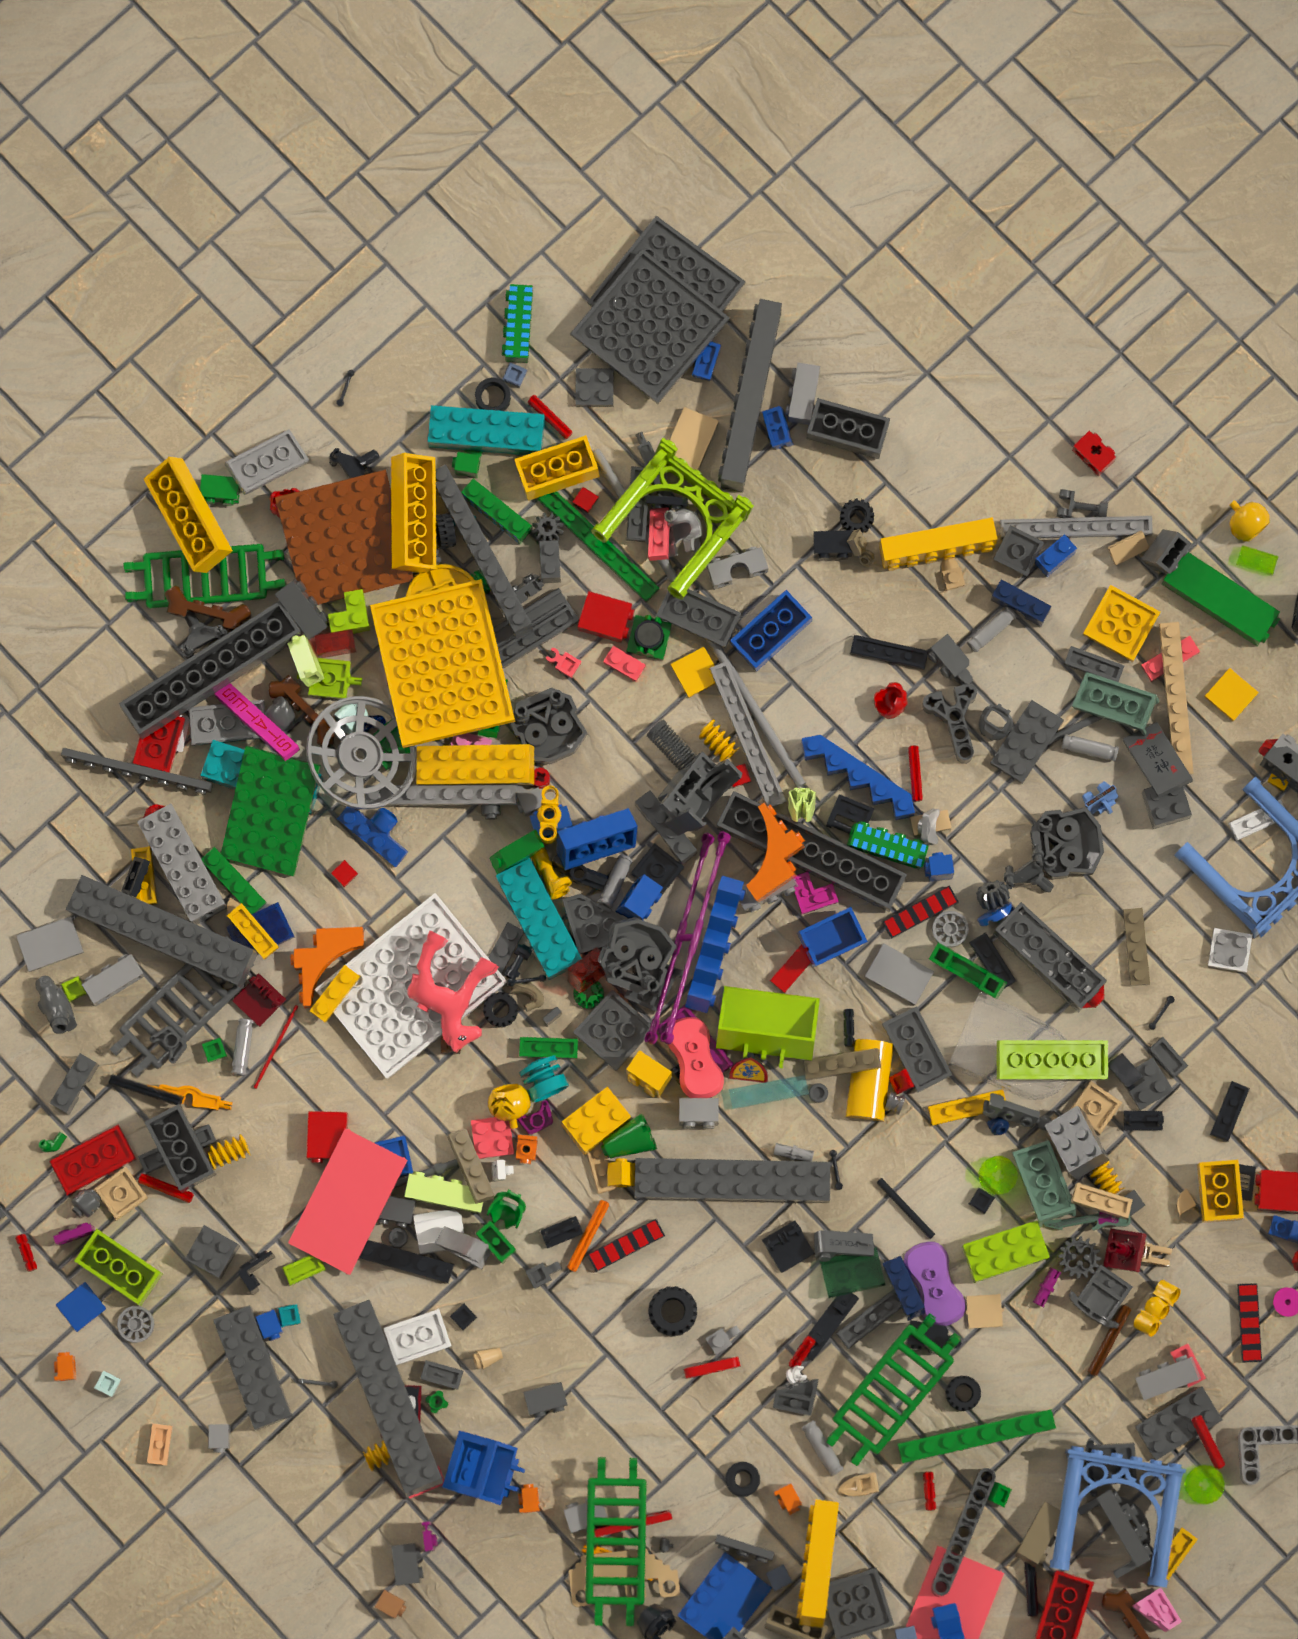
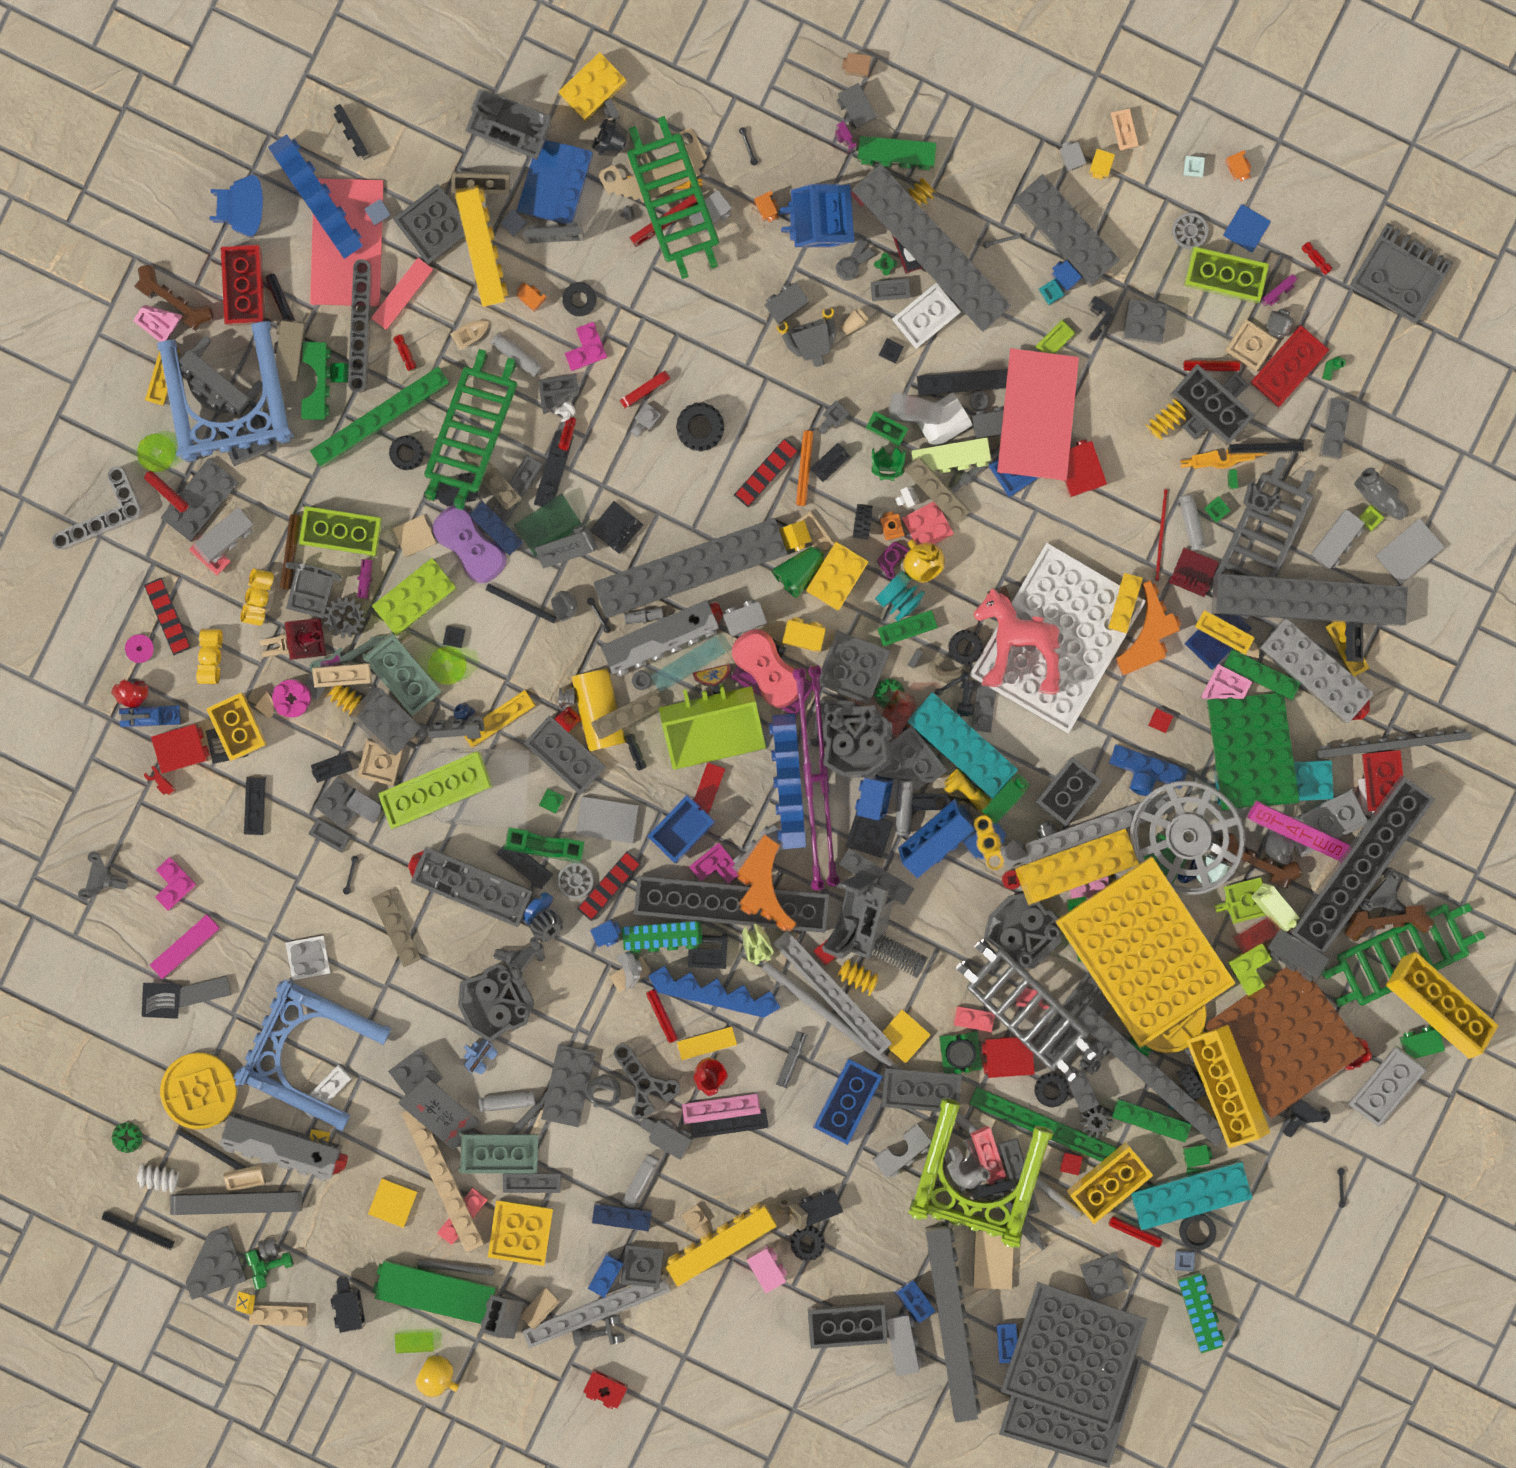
camera: 155 degrees right, 10 degrees up
(188, 1072) = (1232, 479): none -> green tile
(194, 1418) = (1101, 164): none -> yellow brick
(270, 884) = (1225, 685): none -> bright pink wing
(385, 1505) = (896, 152): none -> green brick
(456, 839) = (1068, 791): none -> dark grey brick
(473, 1411) = (848, 267): none -> dark grey piece
(525, 1549) = (753, 161): none -> black hinge
(534, 1355) = (811, 339): none -> dark grey torso
(552, 1162) = (862, 521): none -> black tyre
(560, 591) = (975, 978): none -> bar
(577, 584) = (1061, 1097): none -> black tyre
(749, 1425) = (591, 349): none -> dark pink plate
(783, 1124) = (661, 637): none -> piece
(807, 690) = (791, 1059): none -> dark grey pin
(865, 1190) = (564, 605): none -> dark grey hair
(882, 733) = (706, 1043): none -> yellow tile
(888, 1334) = (494, 480): none -> dark tan plate
(891, 668) = (721, 1108): none -> bright pink tile
(903, 505) = (766, 1268): none -> bright pink brick
(911, 1549) = (402, 293): none -> coral tile
(945, 1011) = (551, 801): none -> green plate
(1016, 1518) = (315, 406): none -> green arch
(1053, 1340) = (340, 531): none -> lime brick
(1166, 1193) = (283, 705): none -> dark pink plate
(1193, 614) = (455, 1267): none -> dark grey bar
(1222, 1268) = (209, 656): none -> yellow piece

